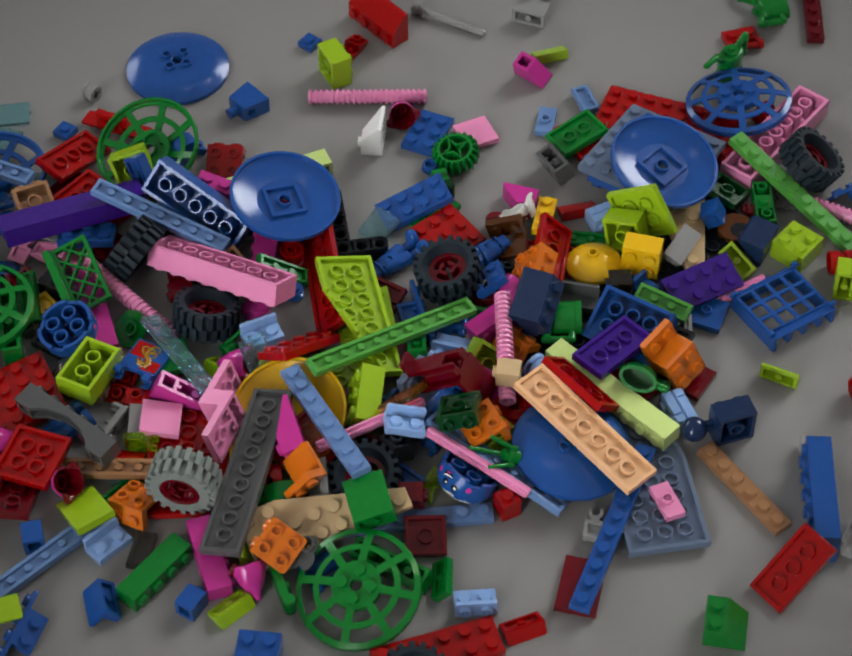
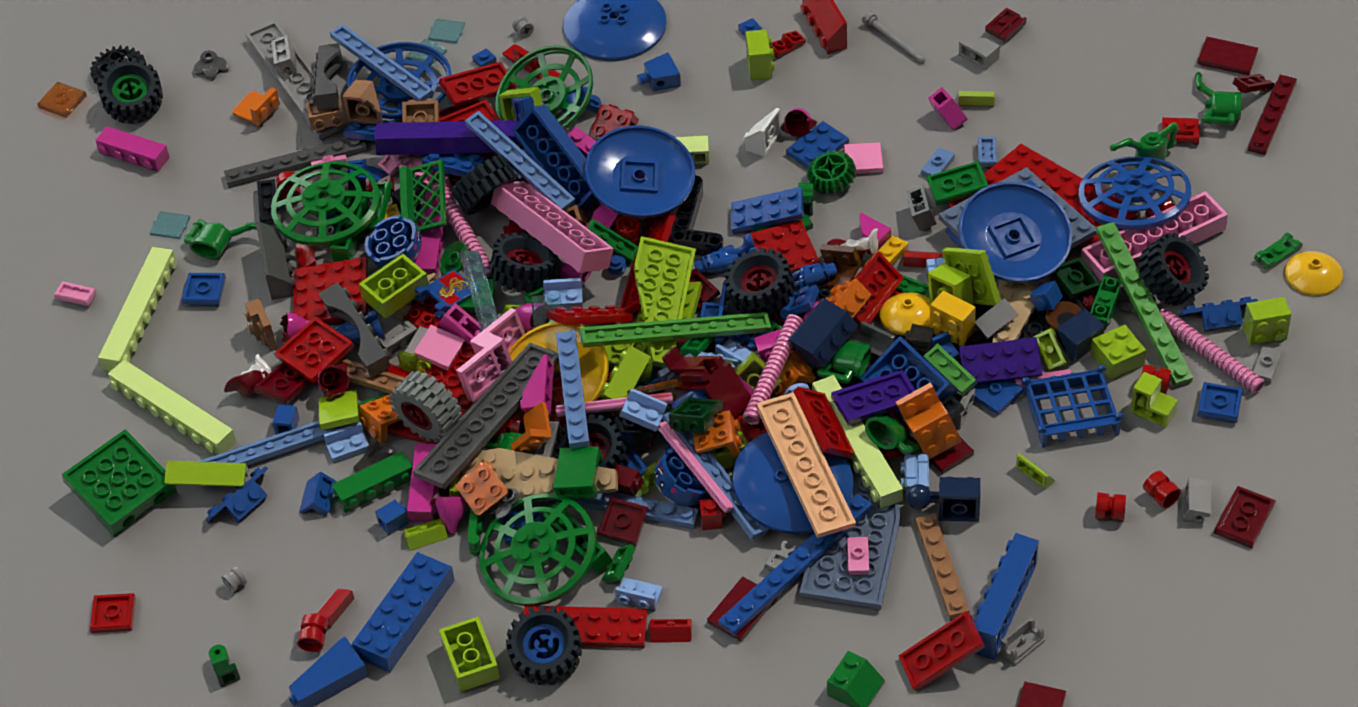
camera: 25 degrees right, 0 degrees up
(379, 223) = (725, 222): clear light blue piece -> none
(387, 96) = (780, 96): bright pink piece -> none
(428, 165) = (801, 177): blue plate -> none
(507, 371) = (757, 390): tan brick -> none
(510, 455) = (727, 469): green plant -> none

